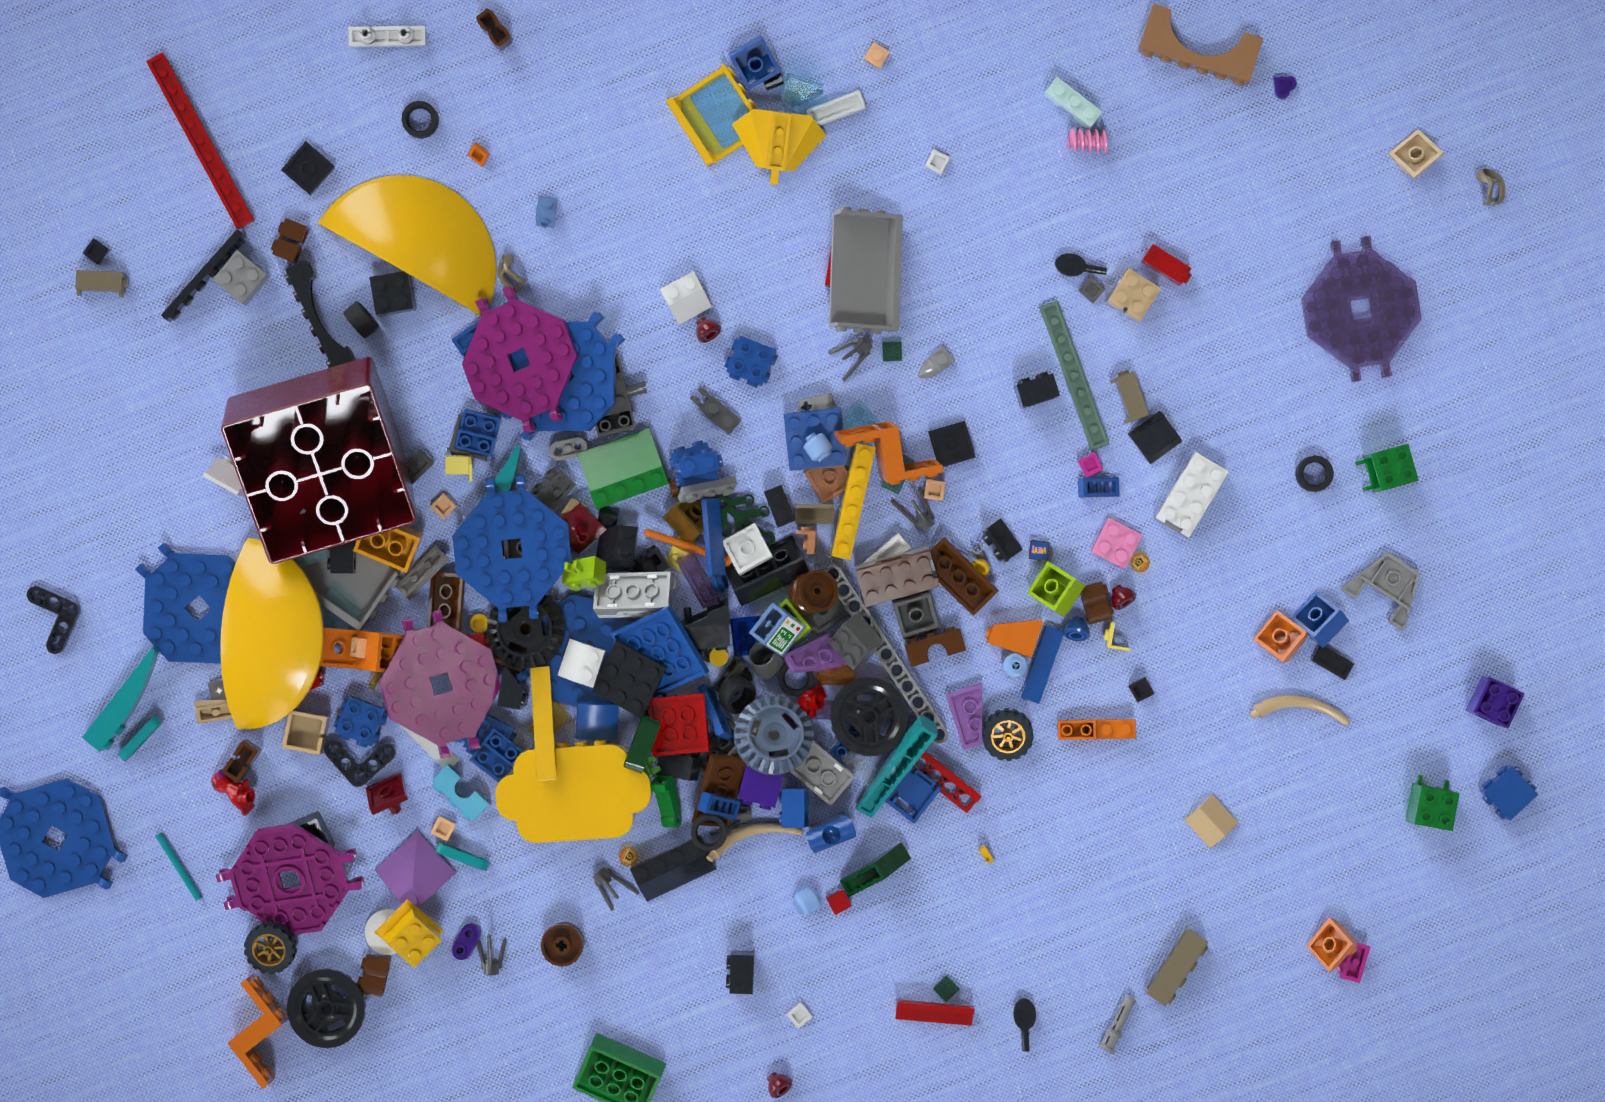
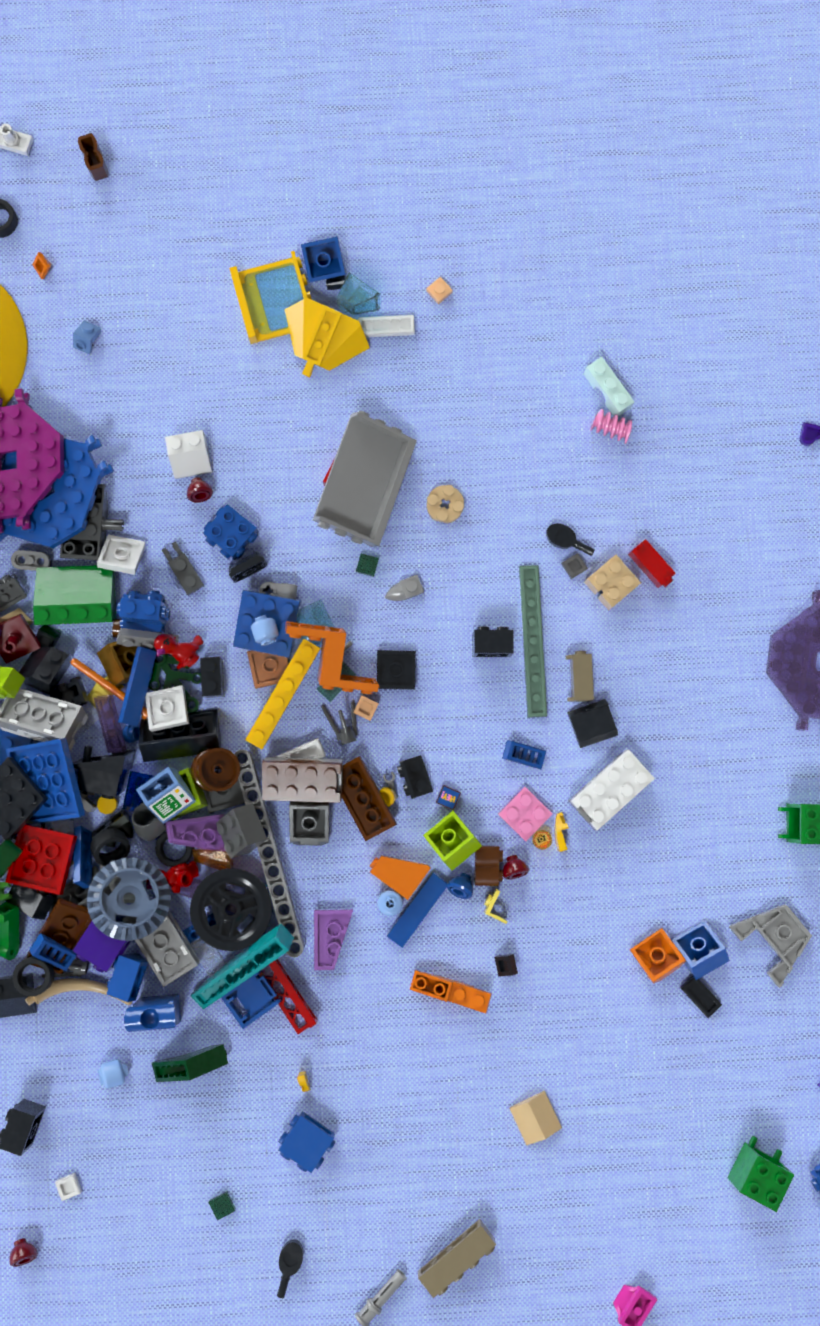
camera: 15 degrees right, 5 degrees down
(505, 262) = (31, 372): dark tan piece -> none
(654, 415) = (121, 554): none -> white plate
(744, 491) = (183, 652): none -> red animal
(776, 388) = (247, 566): none -> black slope
(811, 541) = (230, 720): nougat bracket -> none
(814, 513) = (244, 695): dark tan panel -> none
(838, 901) = (144, 1083): red tile -> none
(861, 346) = (339, 550): dark grey plant -> none
(918, 649) = (335, 858): reddish brown arch -> none
(934, 1012) = (202, 1226): red fence -> none
(937, 162) = (465, 403): white tile -> none
(948, 257) = (446, 493): none -> tan plate
(999, 750) = (368, 952): black wheel -> none
(1006, 906) = (306, 1142): none -> blue brick
(1090, 465) = (522, 730): dark pink plate -> none
(1153, 543) = (559, 826): none -> yellow slope
(1161, 42) = (709, 360): medium nougat arch -> none
(1286, 701) = (628, 1020): tan animal -> none
(1317, 459) = (751, 806): black tyre -> none
(1332, 944) = (620, 1285): orange slope -> none

